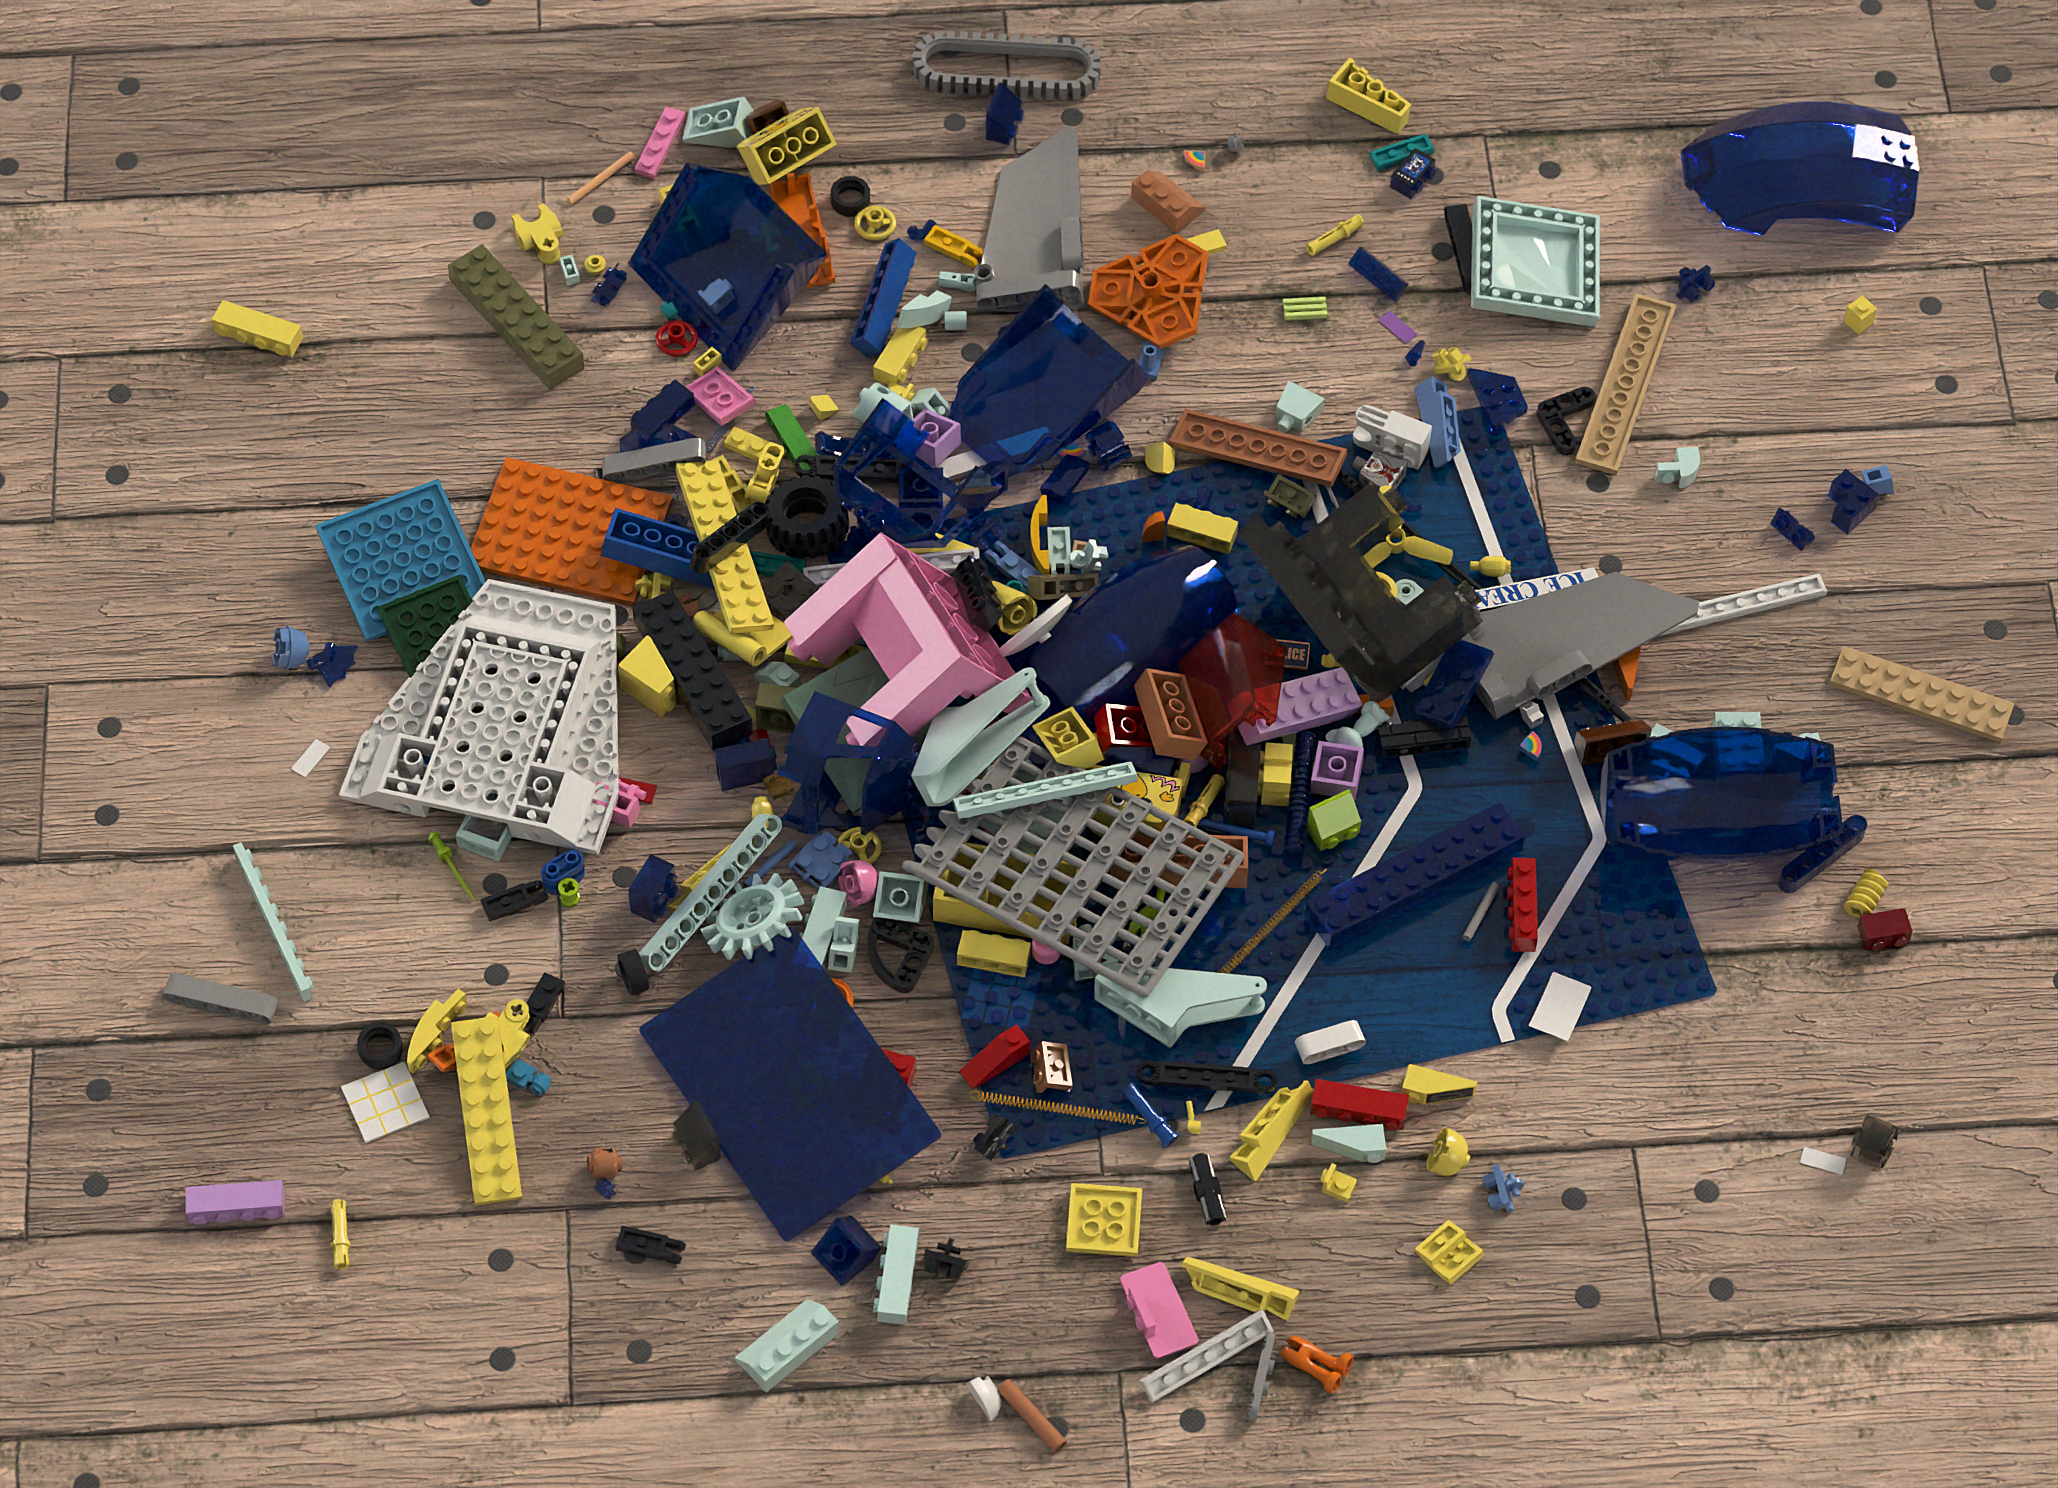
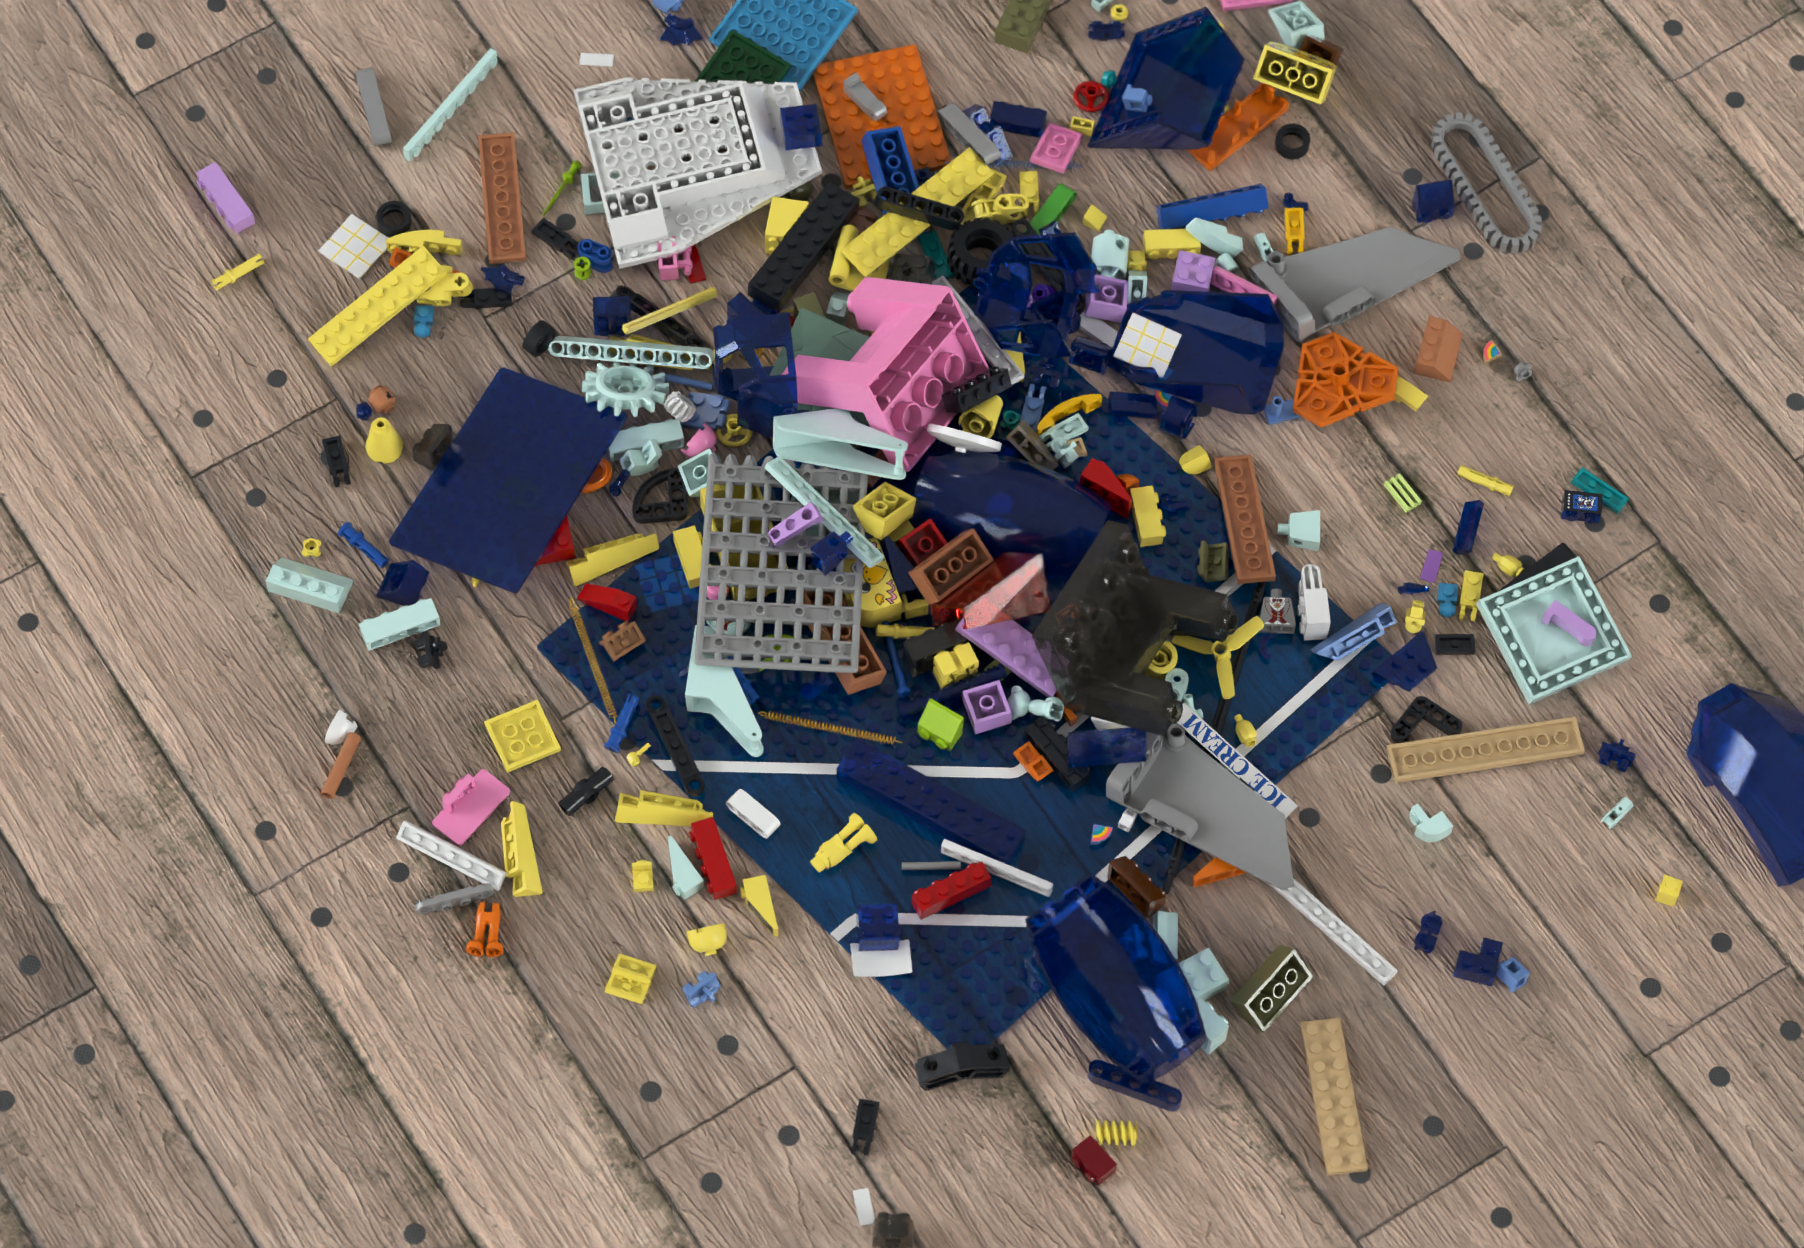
camera: 60 degrees right, 5 degrees up
(426, 928) = (501, 198): none -> nougat plate
(529, 974) = (503, 278): none -> clear blue arm
(546, 530) = (864, 97): none -> light grey leg
(554, 596) = (800, 127): none -> clear blue brick
(659, 1186) = (383, 442): none -> light yellow cone
(682, 832) = (669, 310): none -> light yellow axle
(683, 848) = (669, 326): none -> black plate
(739, 1315) = (311, 543): none -> light yellow plate
(763, 1269) = (357, 540): none -> blue pin
(810, 875) = (680, 406): none -> white gear
(853, 982) = (615, 487): none -> clear blue arm
(875, 218) = (1282, 162): light yellow piece -> none
(881, 485) = (1042, 291): none -> dark purple brick
(937, 1034) = (609, 556): none -> light yellow wedge
(949, 353) = (1193, 272): none -> lavender brick
(993, 320) = (1234, 284): none -> bright pink plate
(995, 1137) = (544, 631): black hips -> none
(1006, 429) = (1147, 344): none -> white piece
(1049, 820) = (795, 524): none -> lavender leg
(1102, 803) = (830, 551): none -> clear blue torso
(1151, 537) = (1103, 482): none -> red slope
(1367, 97) = (1631, 432): light yellow wedge -> none
(1415, 986) = (834, 850): none -> light yellow piece
(1421, 764) = (1032, 761): none -> orange slope
(1439, 263) = (1509, 564): none -> light yellow plant
(1441, 329) = (1447, 598): none -> dark azure plate
(1450, 311) = (1470, 593): none -> light yellow hinge
(1498, 349) = (1455, 644): none -> black plate
(1522, 850) = (997, 868): none -> white tile
(1529, 989) = (877, 927): none -> clear blue brick
(1541, 241) = (1570, 623): none -> lavender leg
(1725, 985) = (962, 1063): none -> black brick
(1737, 1114) = (865, 1124): none -> black hinge
(1753, 313) = (1618, 812): none -> light aqua bar
(1780, 685) = (1271, 987): none -> olive slope

